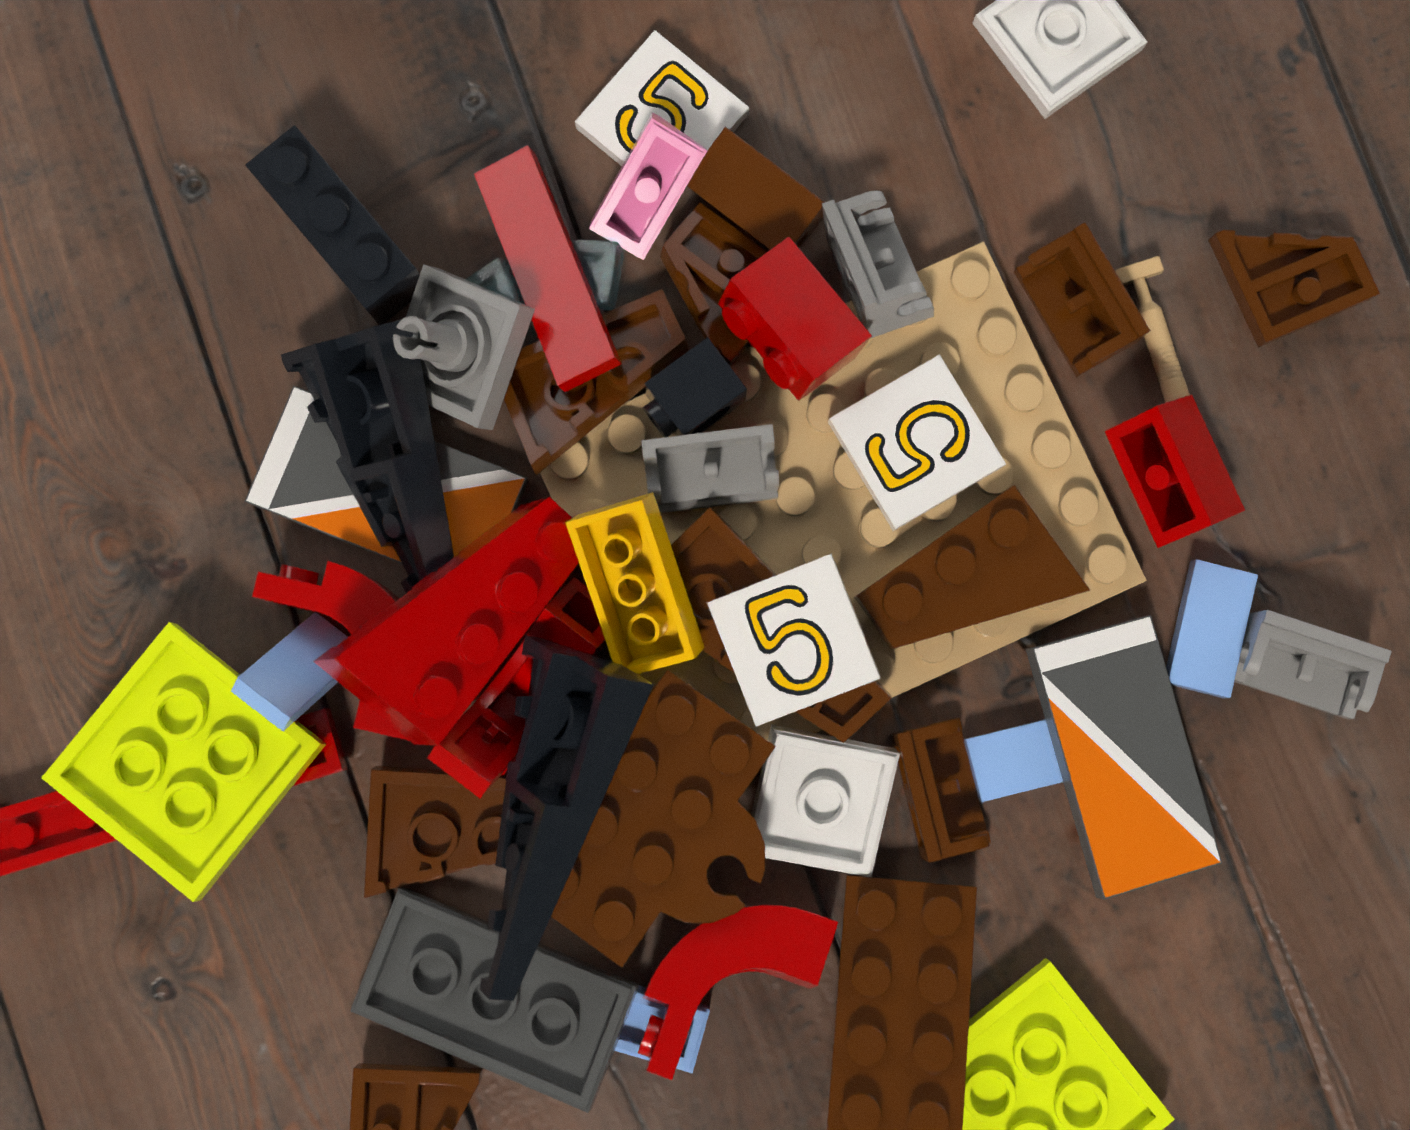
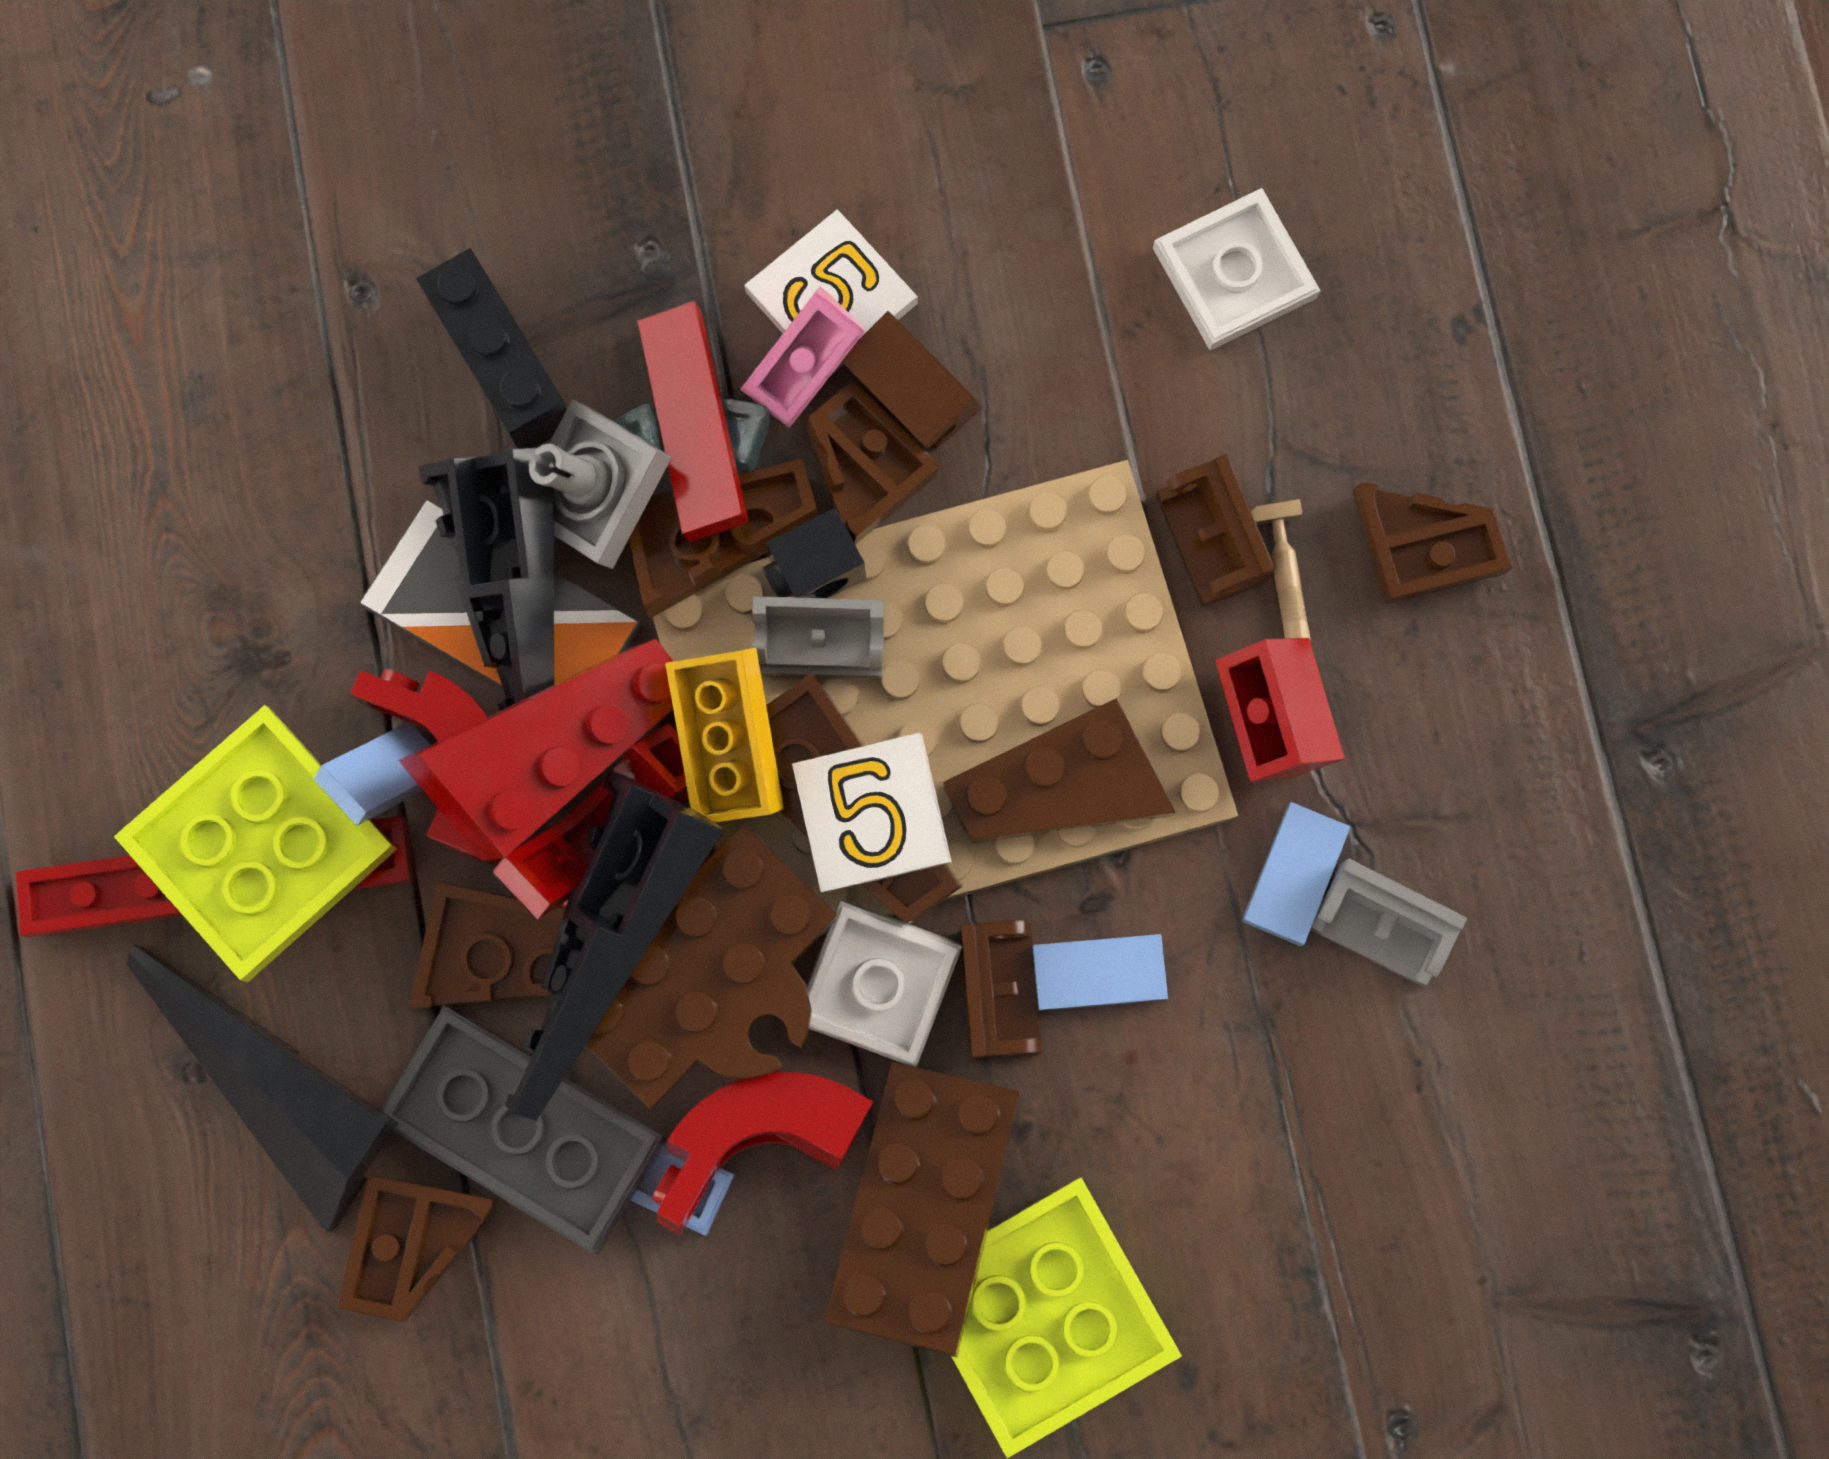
camera: 10 degrees right, 5 degrees down
(277, 1019) = (299, 1114): none -> black wedge
(792, 319) = (922, 504): red brick -> none
(875, 264) = (1015, 464): light grey hinge -> none
(916, 442) = (1027, 643): white tile -> none
(1123, 757) = (1188, 986): tile -> none

